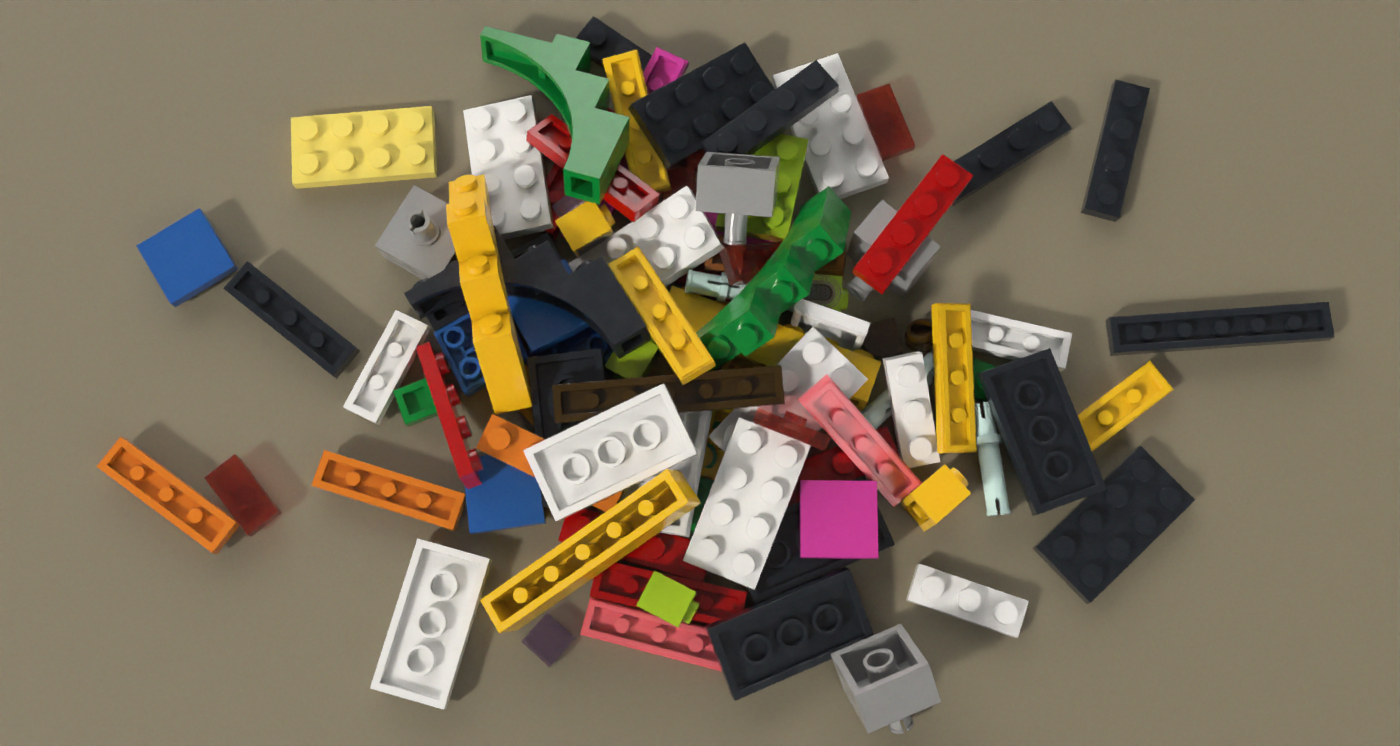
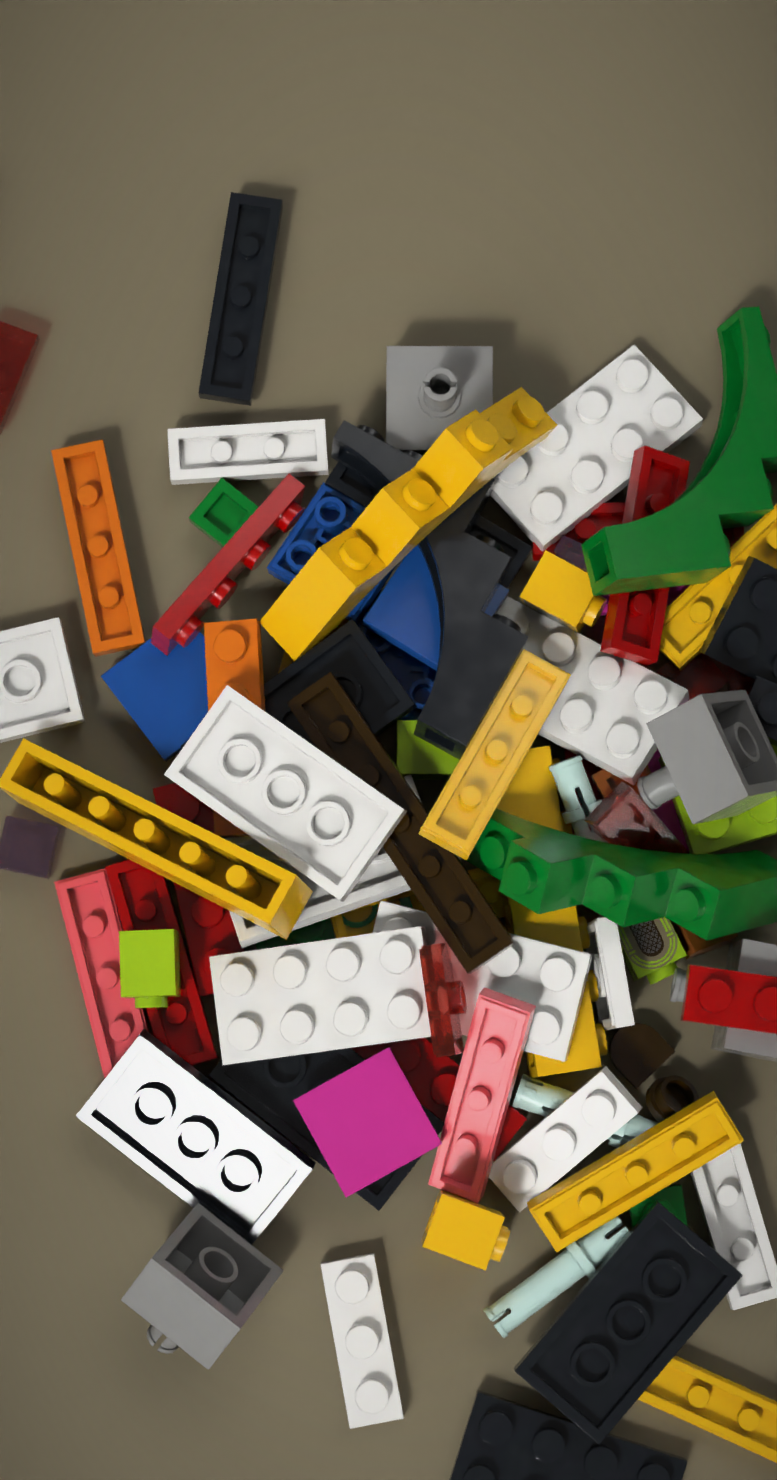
camera: 60 degrees right, 5 degrees up
(187, 257) = (245, 123): blue tile -> none
(363, 147) = (514, 249): light yellow plate -> none

